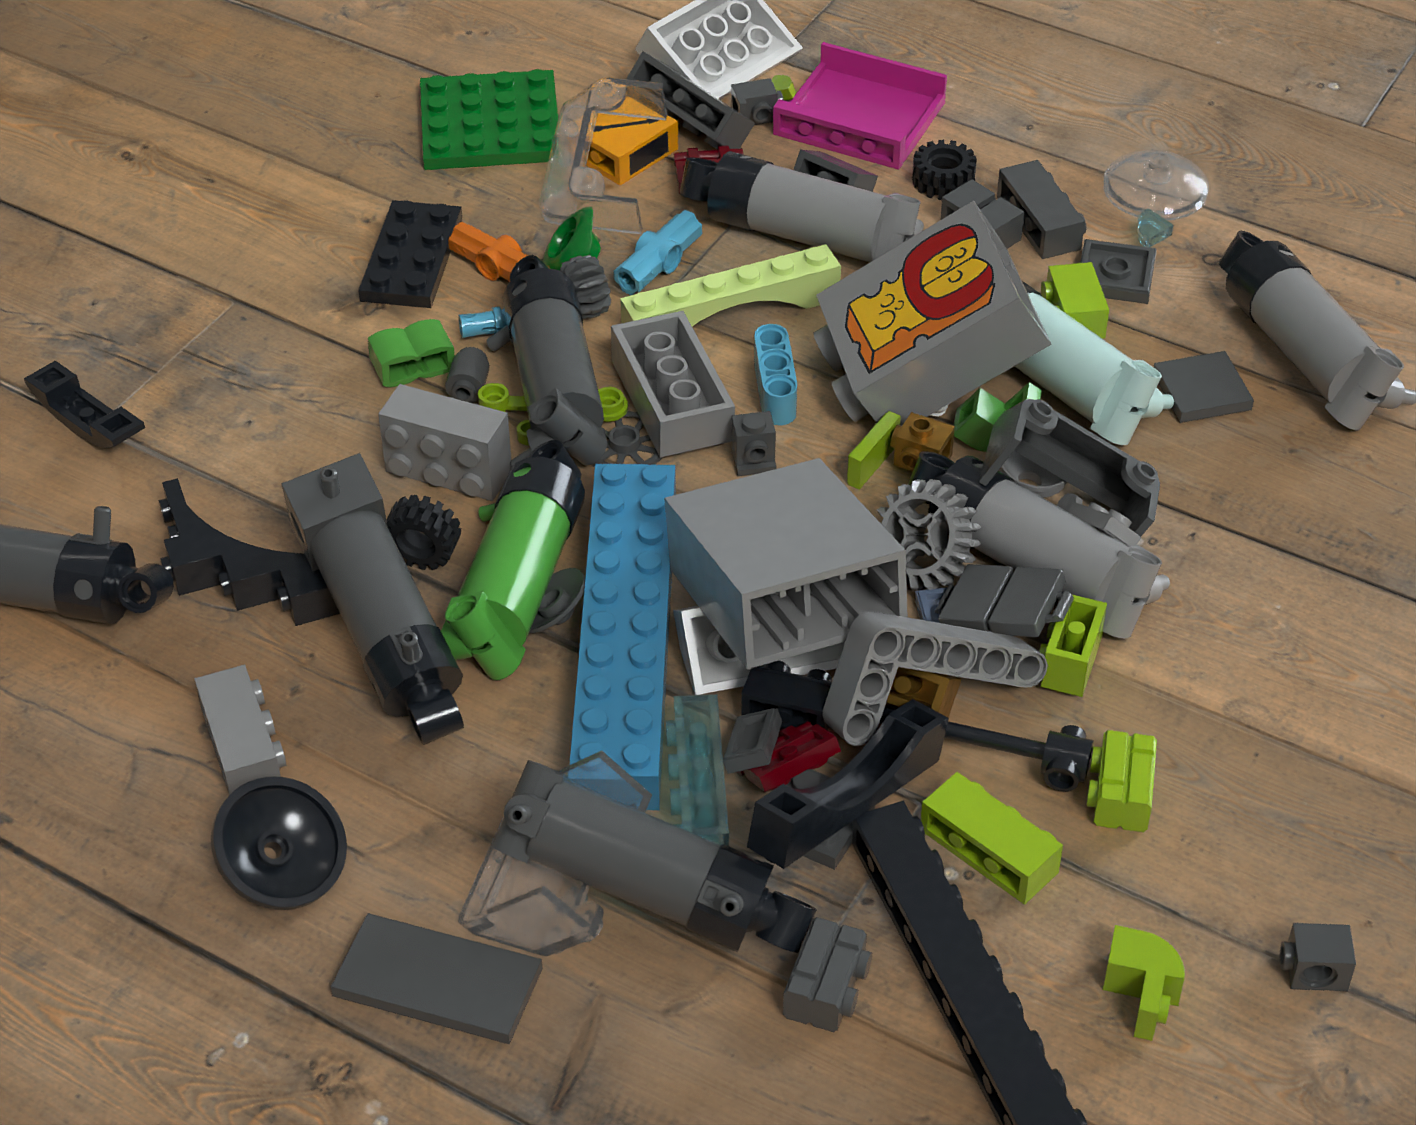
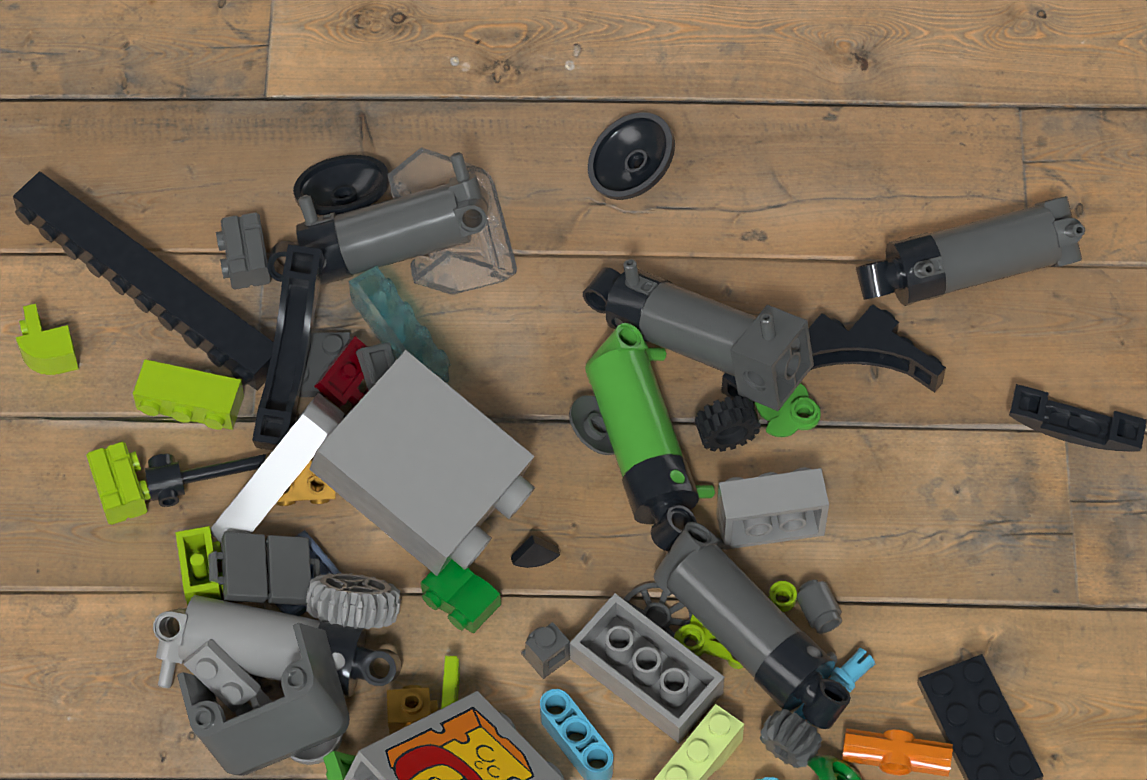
camera: 150 degrees right, 15 degrees up
(239, 726) = (729, 227): light grey brick -> none
(411, 352) = (882, 606): bright green brick -> none
(437, 978) = (491, 141): dark grey tile -> none
(626, 623) = (510, 391): dark azure brick -> none
(649, 945) = (343, 183): none -> black dish

